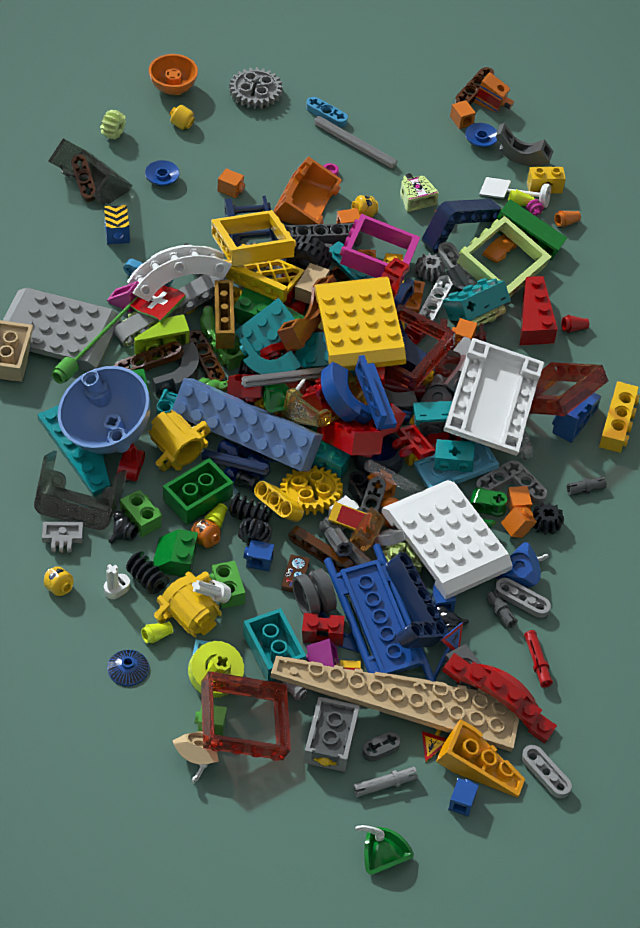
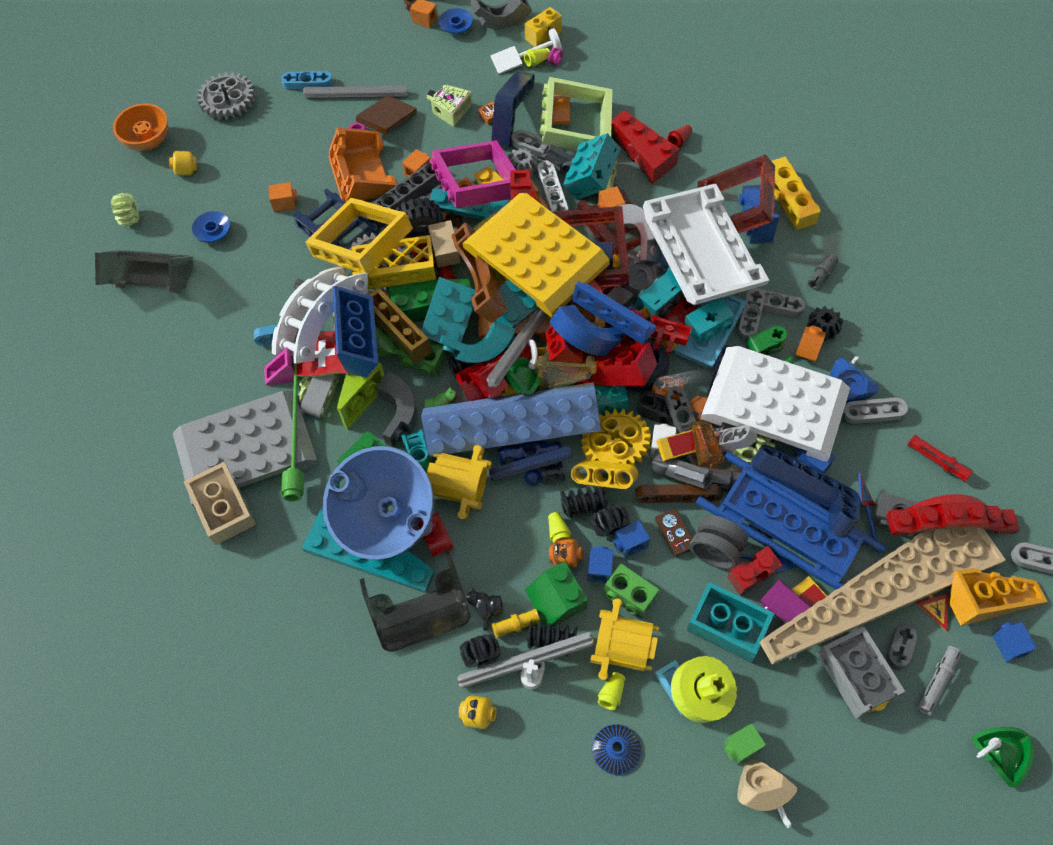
camera: 30 degrees left, 10 degrees up
(62, 534) = (436, 658): light grey hinge -> none
(82, 184) = (126, 274): reddish brown beam -> none
(93, 547) = (480, 650): none -> black gear
(117, 224) = (213, 303): piece -> none
(124, 573) = (516, 663): none -> light grey axle
(129, 550) = (515, 623): none -> yellow pin
(141, 512) = (487, 582): bright green brick -> none
(147, 357) = (358, 416): reddish brown beam -> none
(185, 293) = (355, 331): none -> blue slope
(197, 491) = (522, 517): green brick -> none
(208, 357) = (411, 374): reddish brown beam -> none
(216, 590) = (641, 610): white piece -> none
(222, 552) = (600, 564): none -> blue brick
(250, 688) = (804, 695): clear red window -> none
(274, 351) = (475, 330): red hinge -> none
(360, 171) = (386, 114): none -> reddish brown tile
(366, 205) = (419, 140): yellow head -> none
(450, 618) = (844, 476): black animal -> none
(501, 609) = (869, 434): dark grey pin -> none
(518, 497) = (792, 322): orange brick -> none
(533, 227) = (578, 72): green wedge -> none
(566, 218) = (588, 49): orange cone -> none

